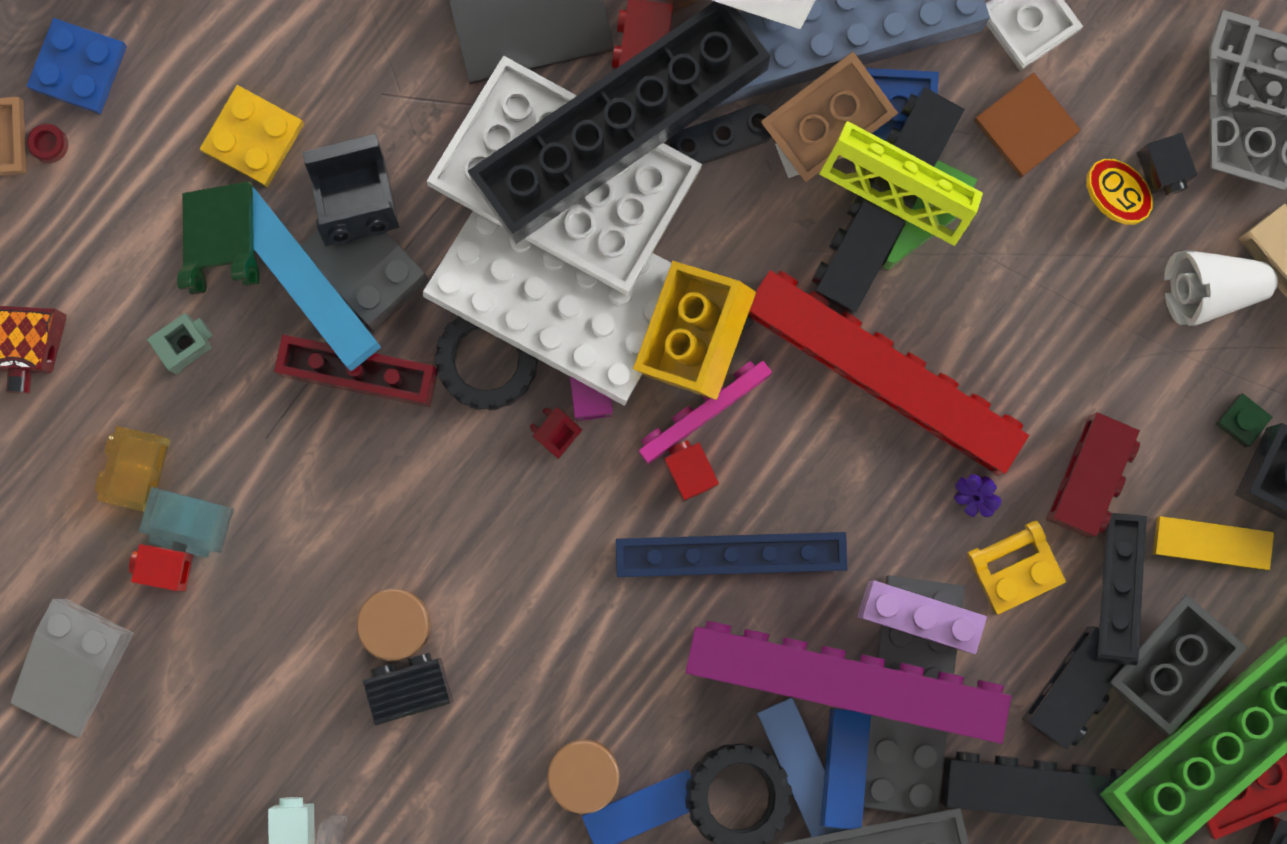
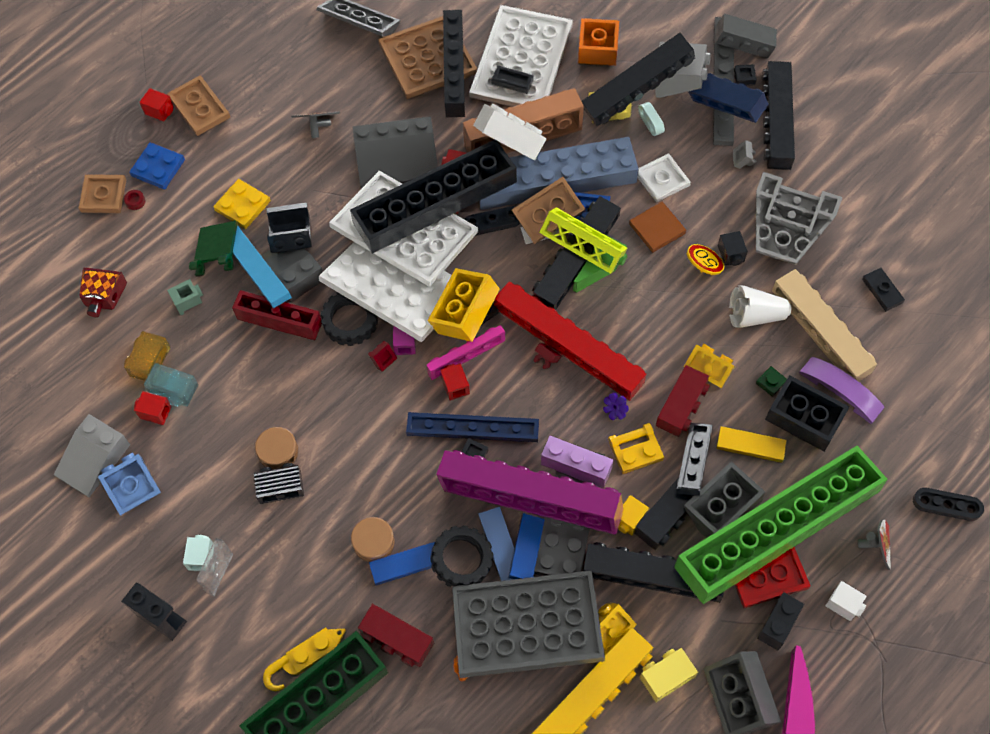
camera: 10 degrees right, 20 degrees down
(146, 713) = (128, 483): none -> medium blue plate
(737, 603) = (474, 448): none -> black plate
(850, 403) = (548, 354): none -> dark red tile
(1025, 692) = (632, 515): none -> yellow brick
(1137, 400) = (708, 363): none -> yellow bracket

